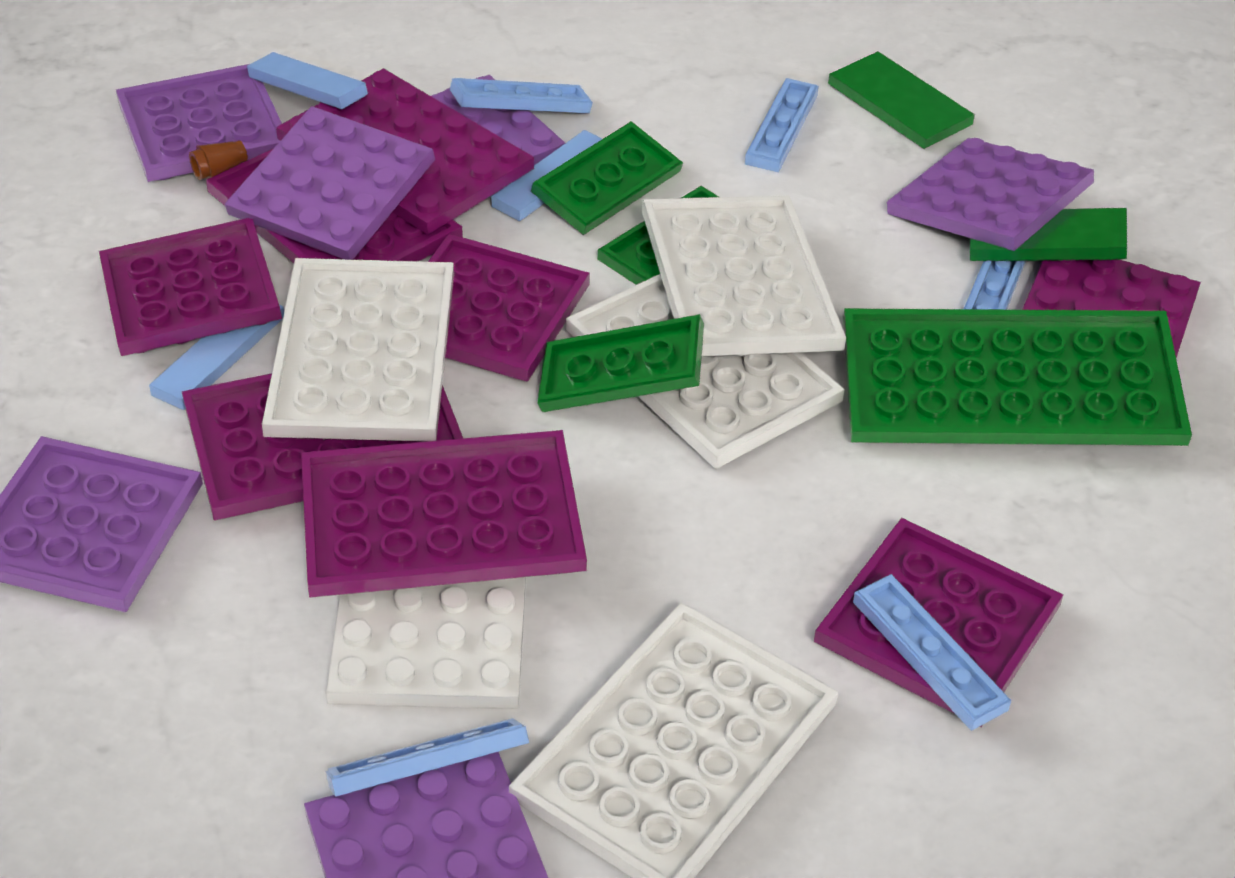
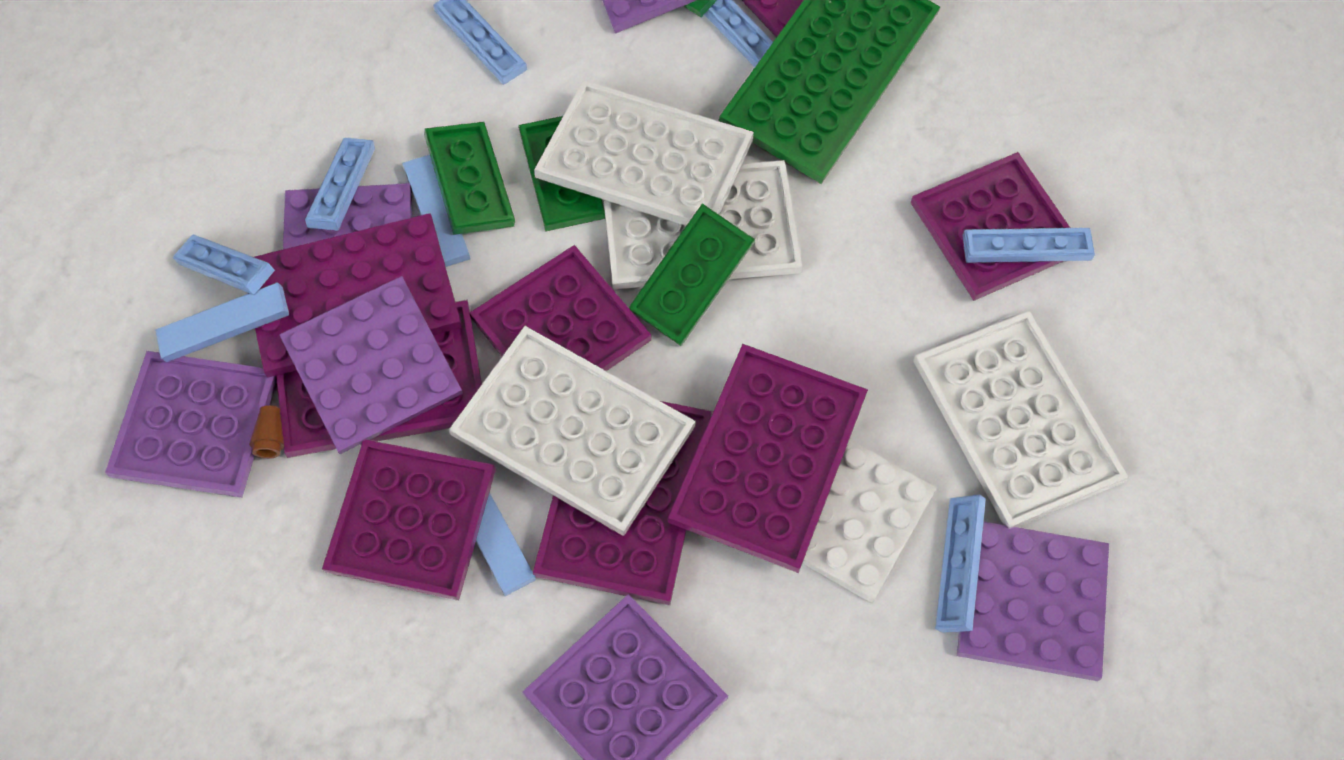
camera: 60 degrees left, 20 degrees up
(370, 59) = (223, 264): none -> light blue tile

